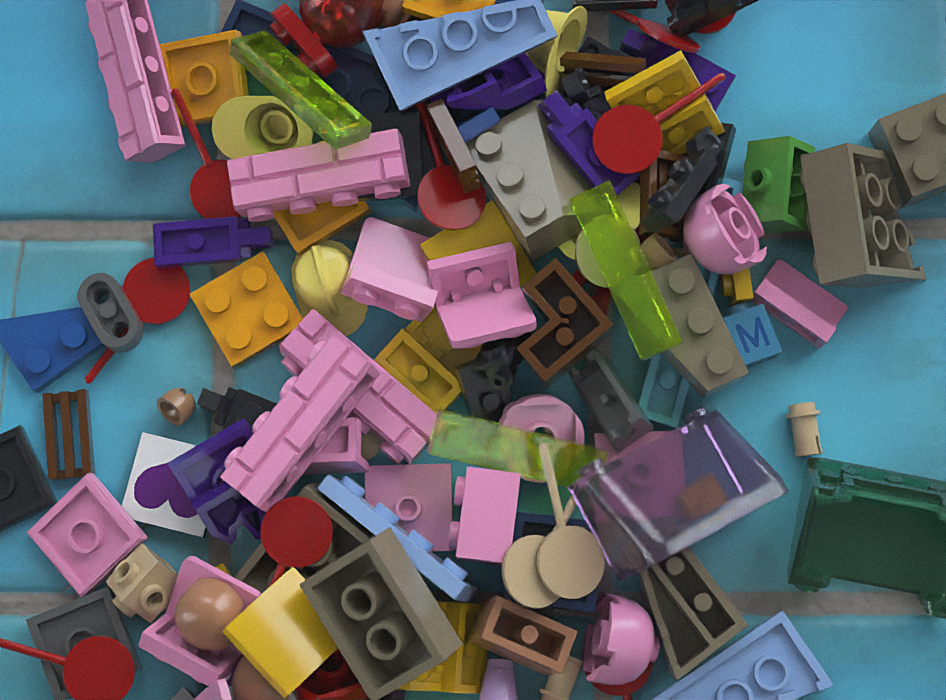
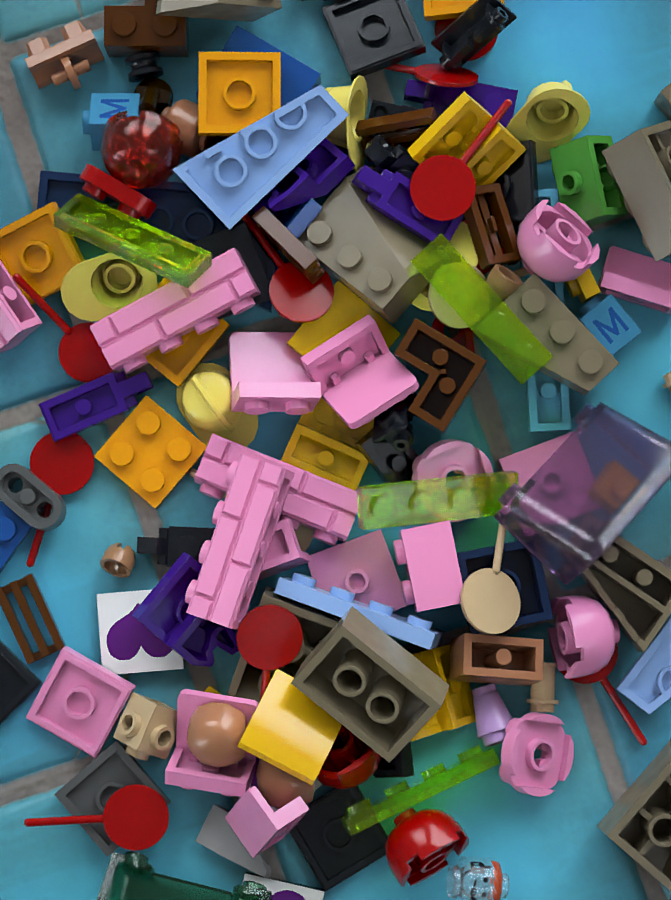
camera: 20 degrees left, 5 degrees up
(570, 556) = (517, 577): tan piece -> none
(610, 401) = (504, 426): dark grey hinge -> none
(685, 181) = (507, 208): black hinge -> none
(759, 110) = (550, 117): none -> light yellow piece

